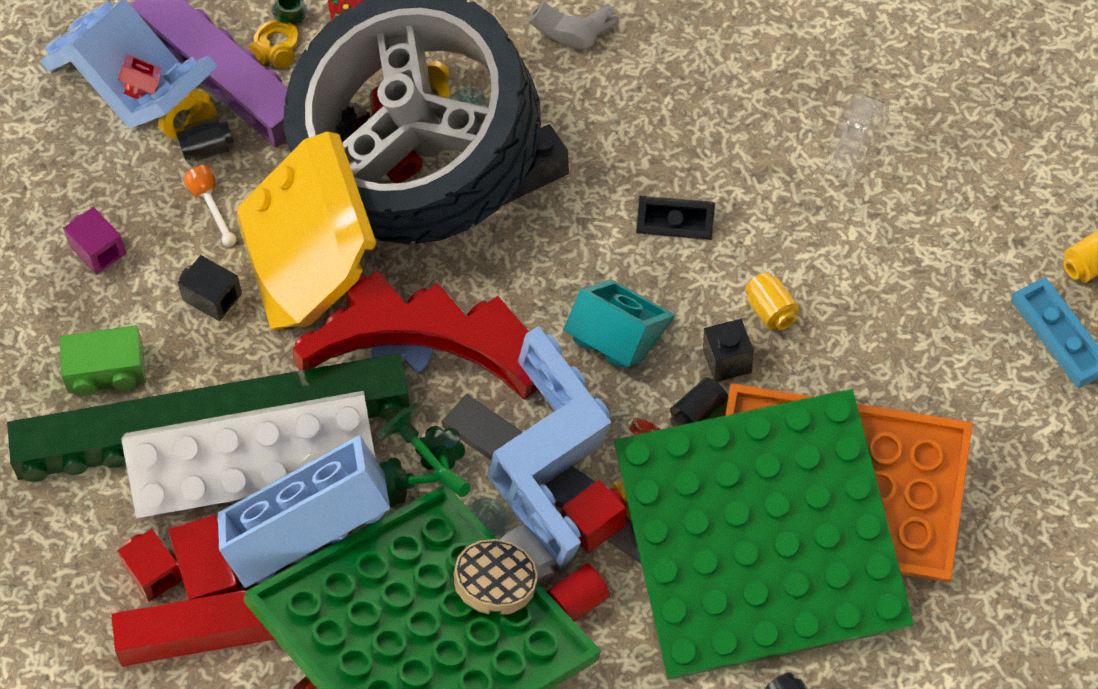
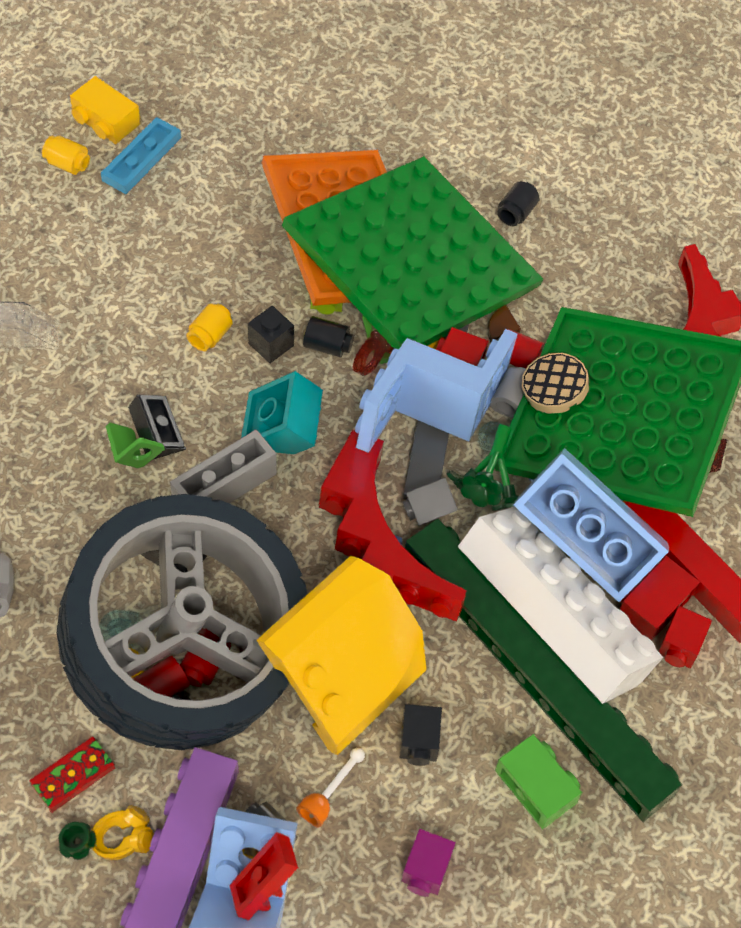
camera: 125 degrees left, 0 degrees up
(438, 399) = (430, 501): none -> brick
(568, 233) = (230, 471): none -> light grey brick
(628, 601) = (501, 320): none -> reddish brown tile
(661, 176) = (127, 448): none -> bright green bracket

